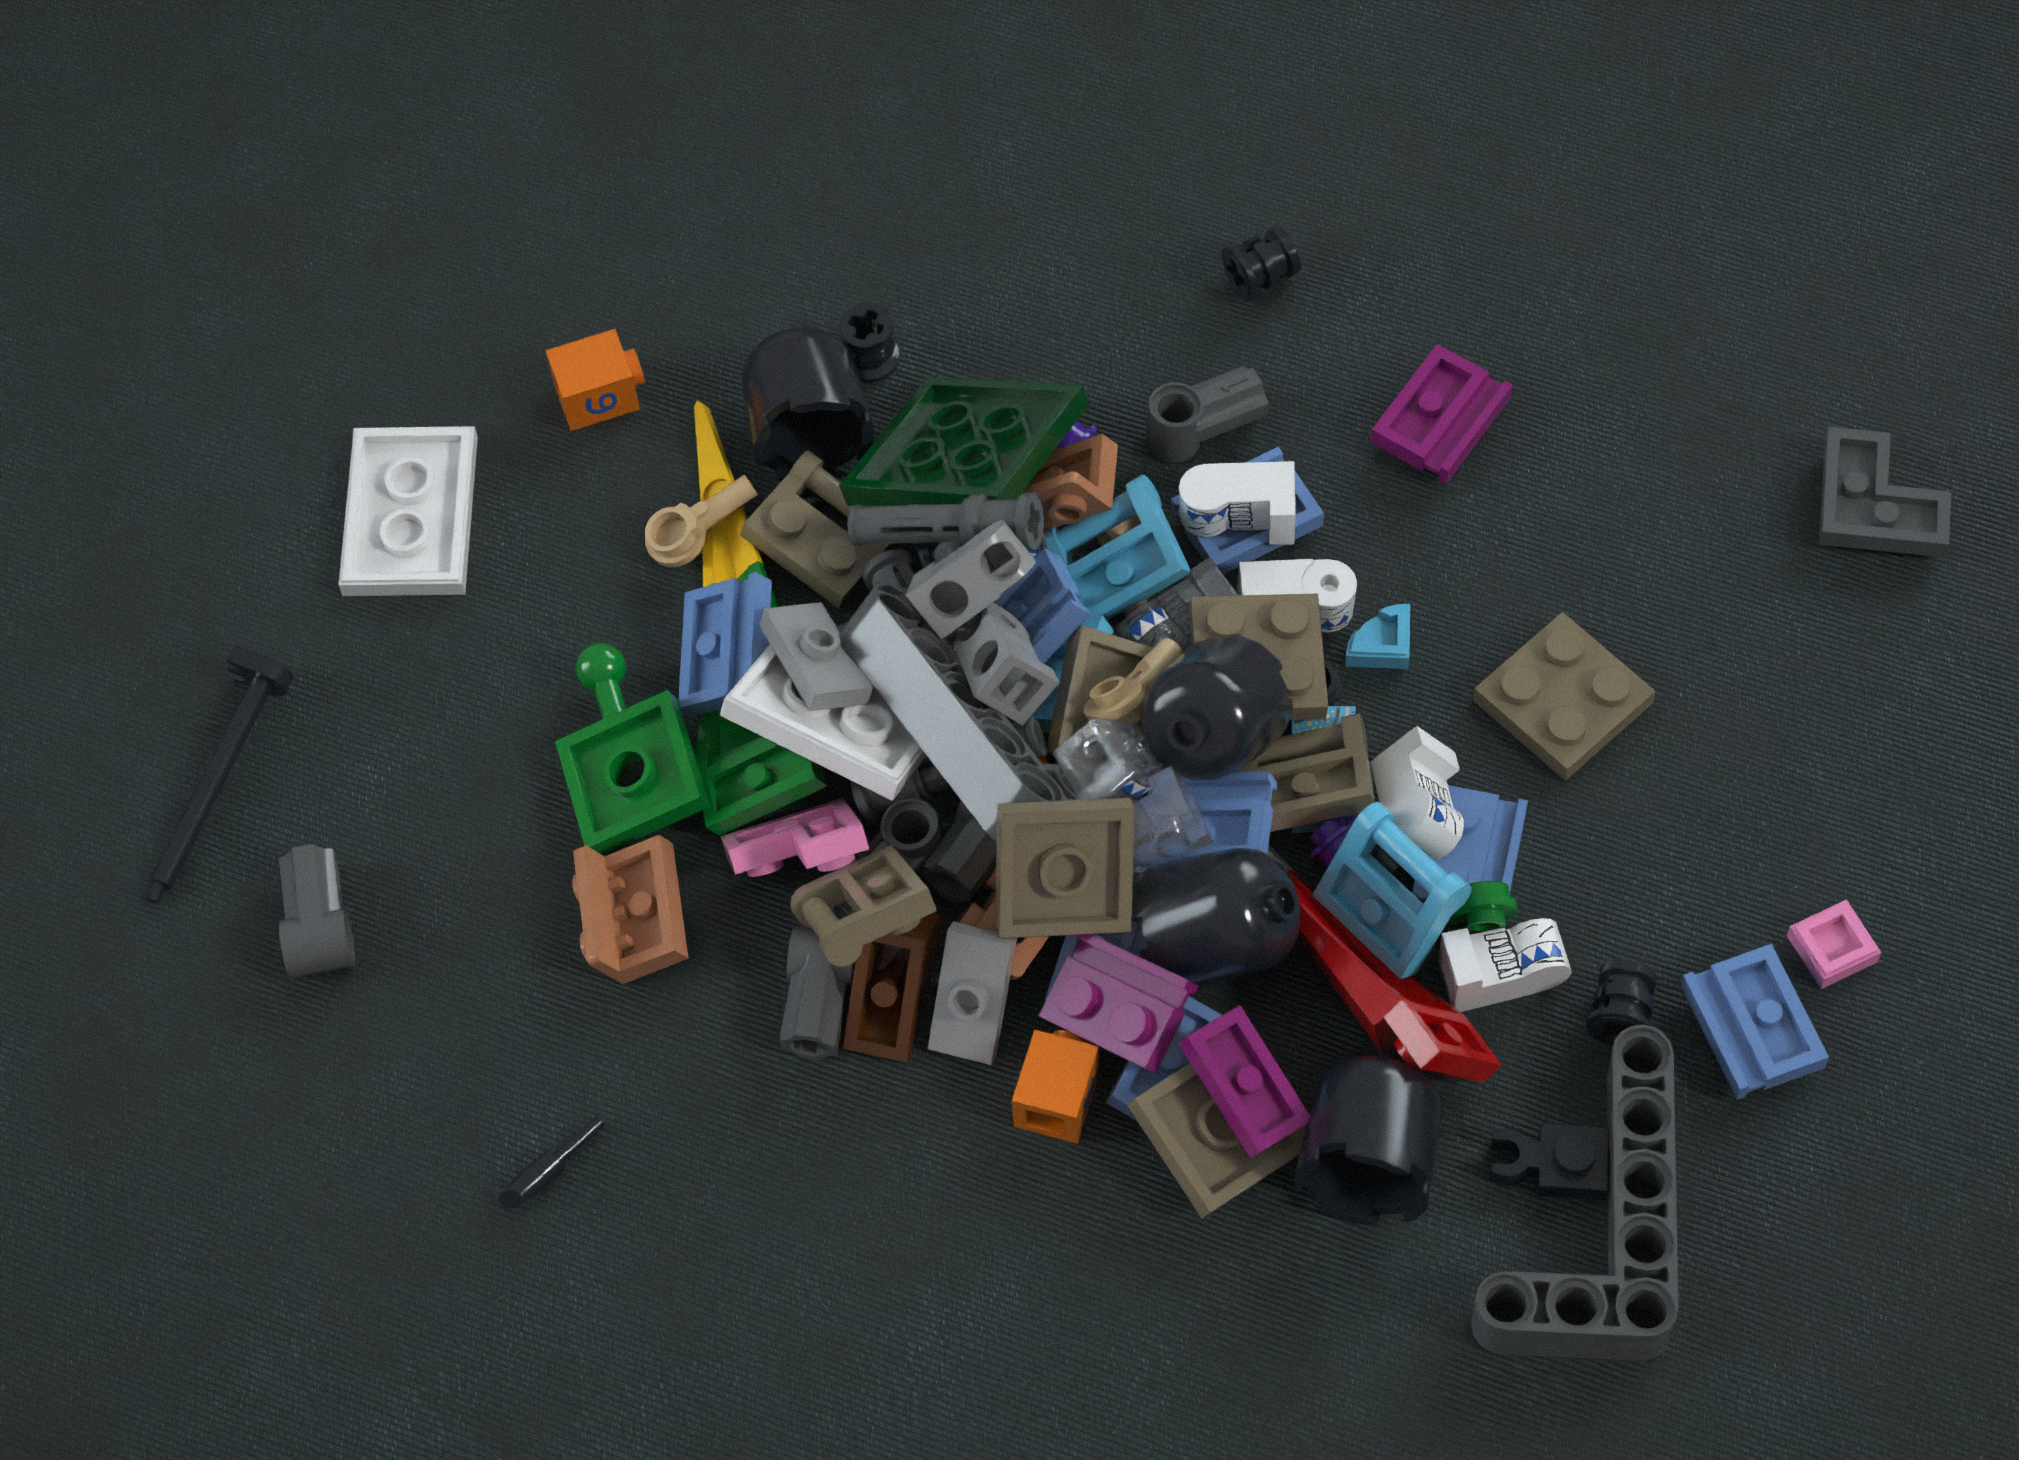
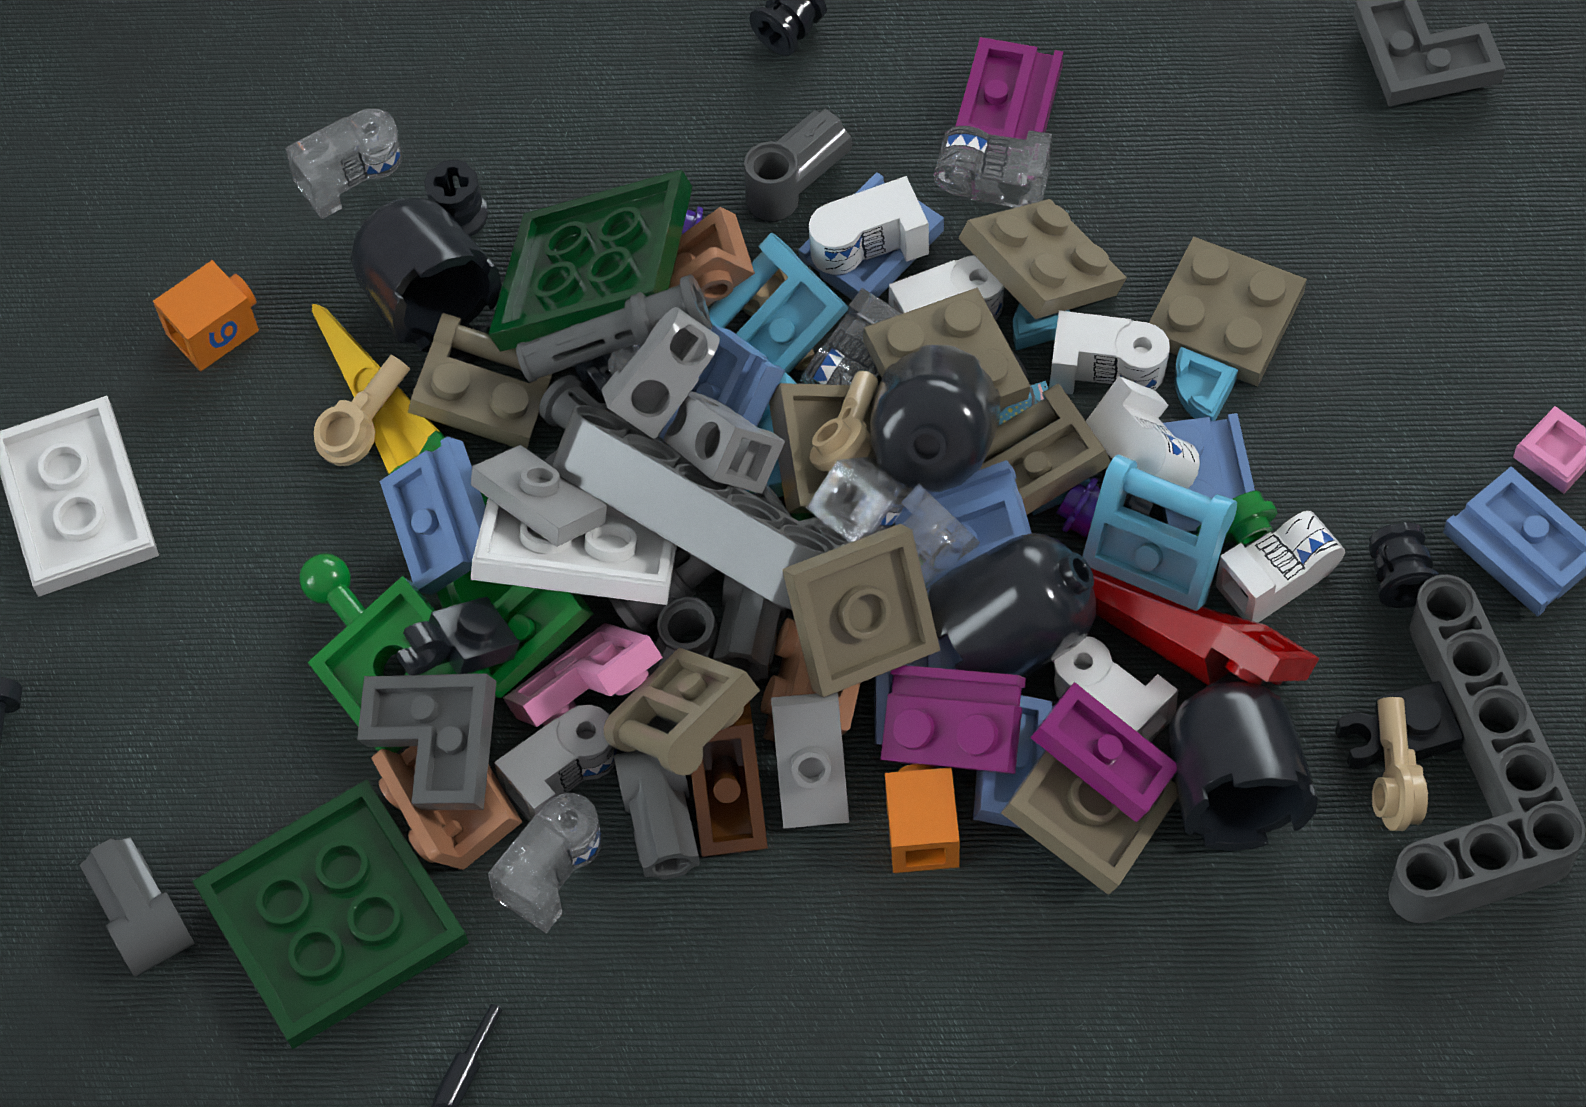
camera: 20 degrees left, 0 degrees up
(483, 981) = (330, 913): none -> dark green plate
(650, 843) = (449, 724): none -> dark grey plate
(698, 765) = (464, 635): none -> black plate
(698, 997) = (544, 856): none -> clear leg
(740, 914) = (556, 759): none -> light grey leg
(782, 266) = (344, 157): none -> clear leg
(1278, 1018) = (1142, 707): none -> white leg
(1398, 479) = (994, 166): none -> clear leg
(1401, 585) = (1042, 258): none -> dark tan plate
(1425, 697) = (1107, 347): none -> white leg
(1510, 761) = (1202, 383): none -> medium azure tile
(1522, 1221) = (1402, 791): none -> tan plate

